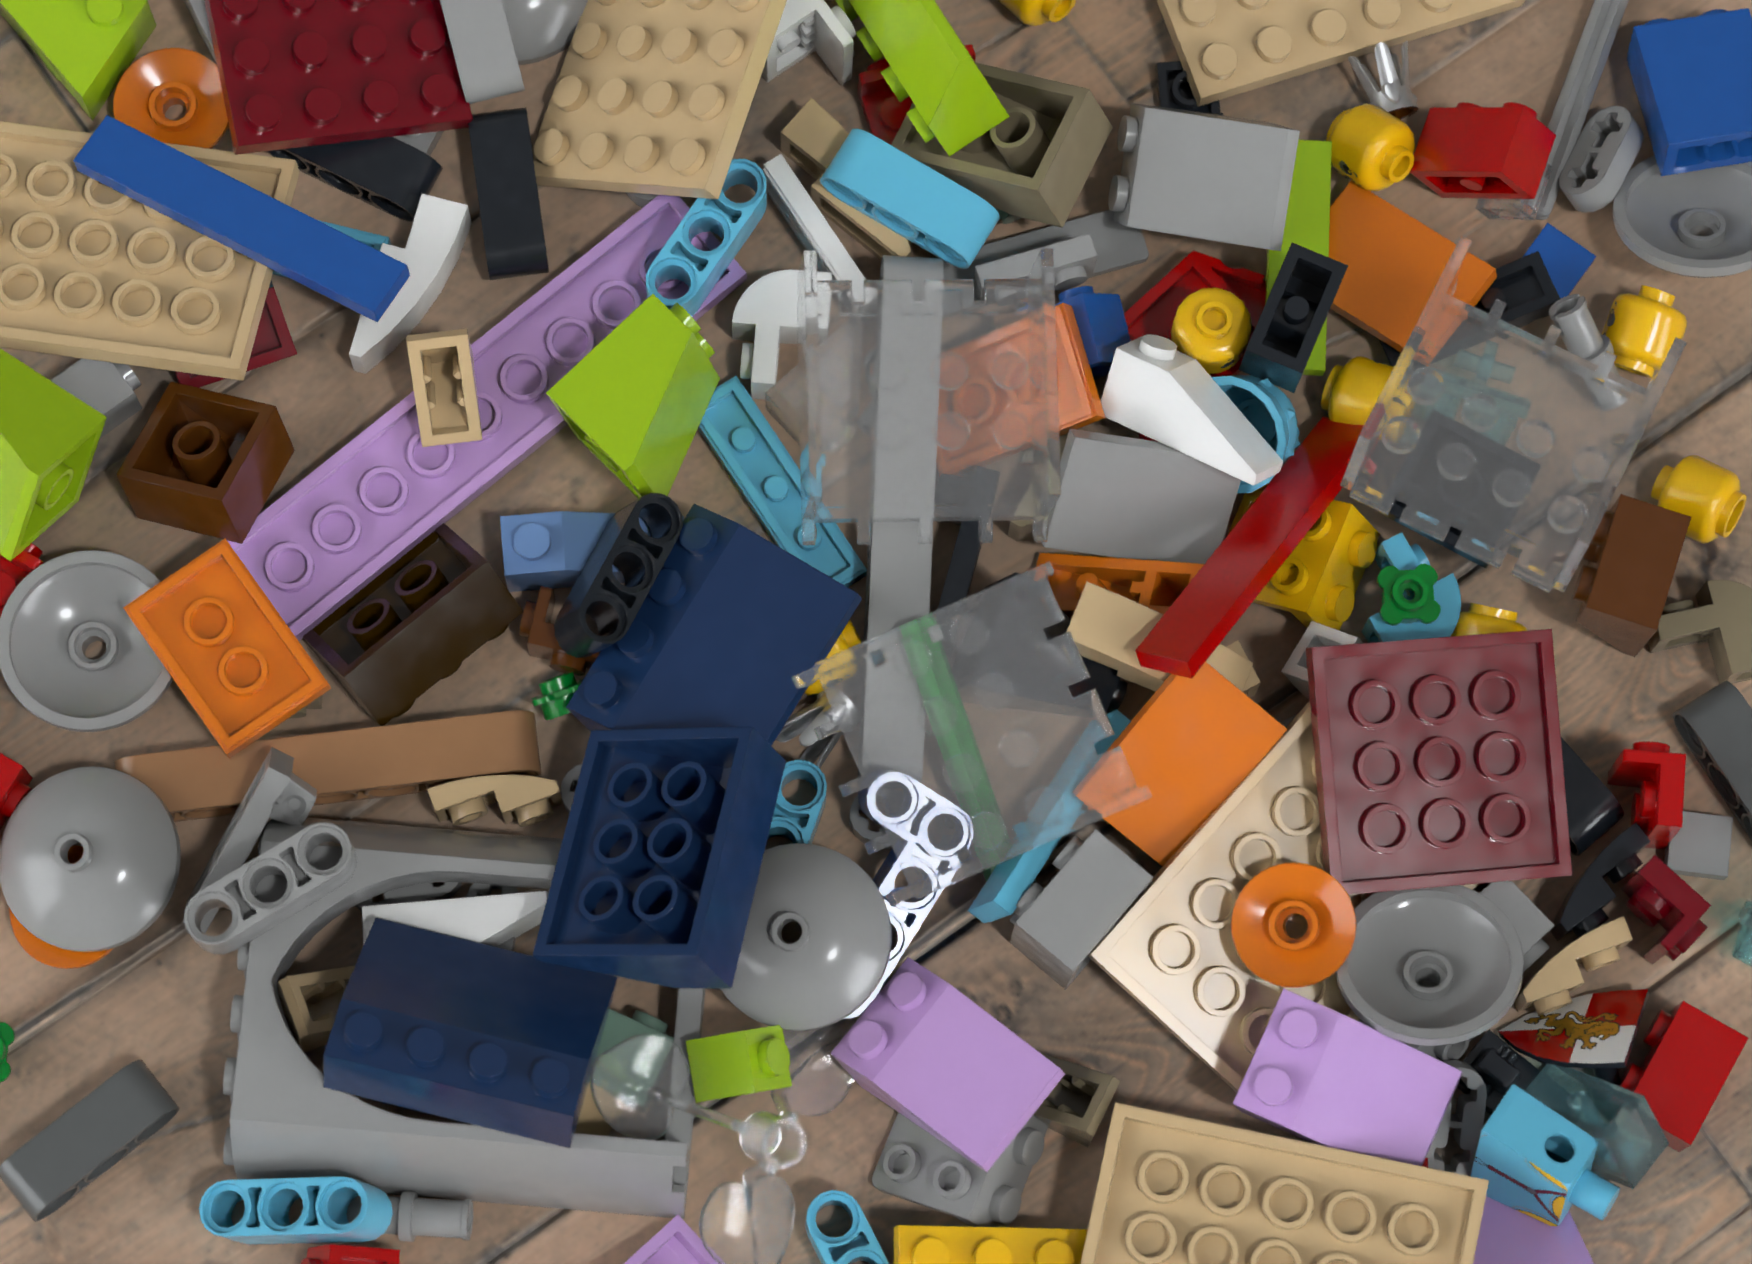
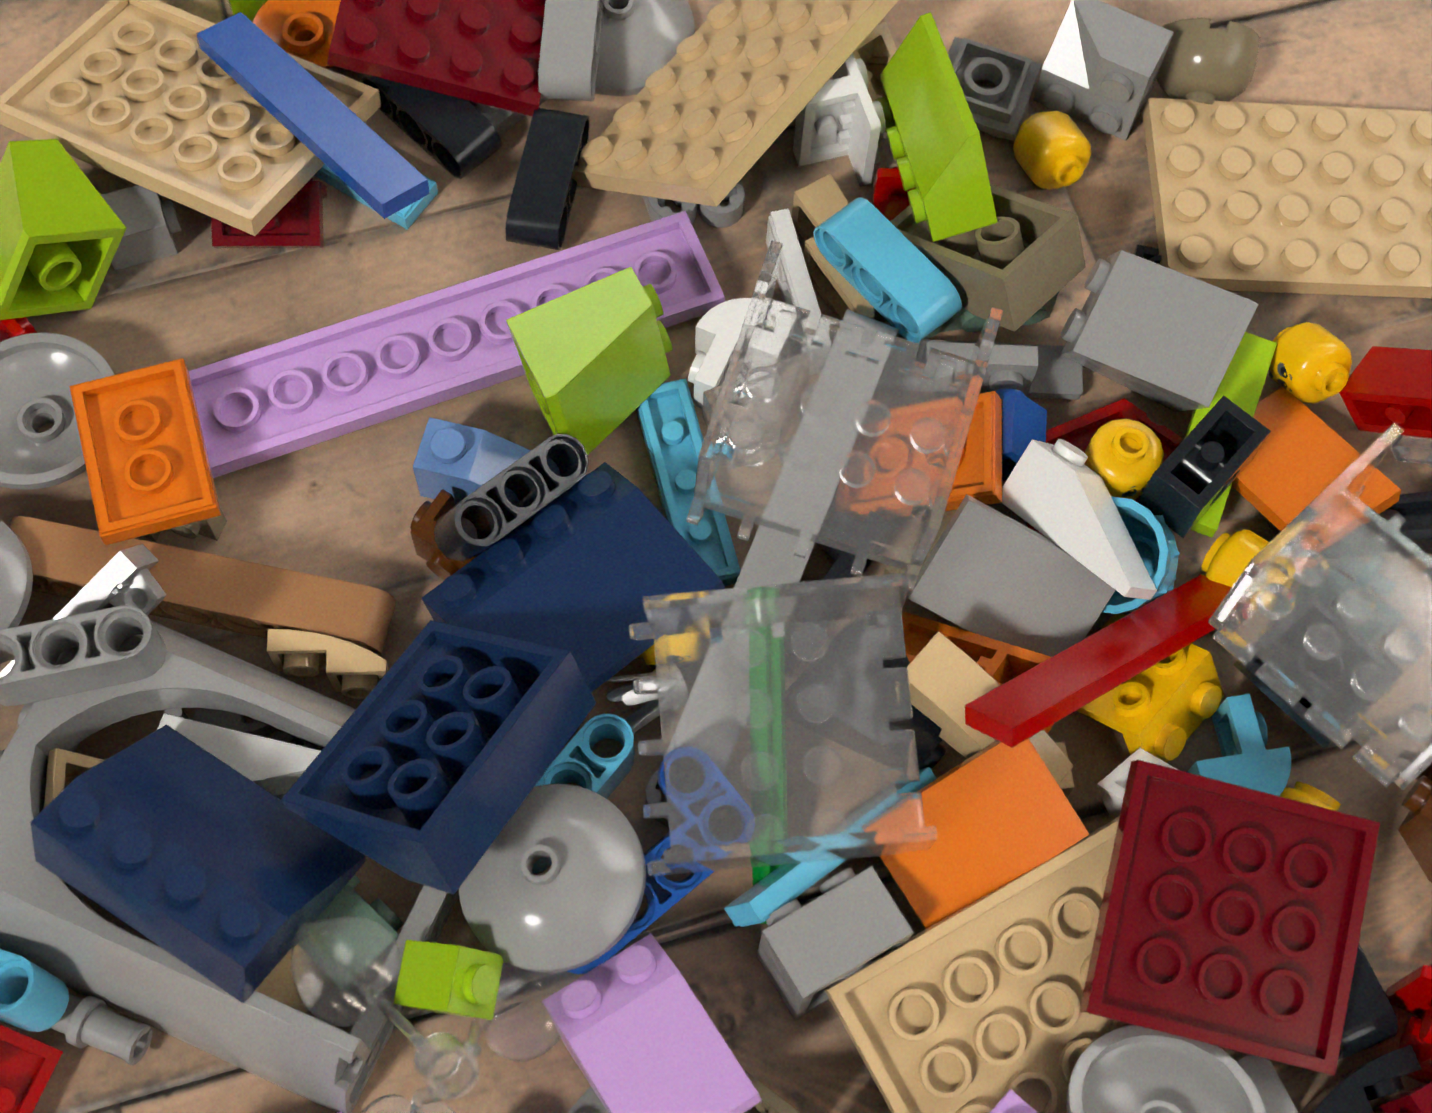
camera: 20 degrees right, 10 degrees down
(206, 462) = (201, 300): reddish brown slope -> none
(414, 624) = (321, 493): dark brown slope -> none
(431, 255) = (438, 220): white slope -> none
(444, 387) = (427, 296): tan slope -> none
(556, 695) = (418, 586): green plate -> none
(728, 220) = (706, 233): medium azure beam -> none
(1261, 920) = (1039, 994): orange dish -> none
(1395, 91) = (1342, 323): flat silver piece -> none
(1400, 610) = (1229, 762): green plate -> none

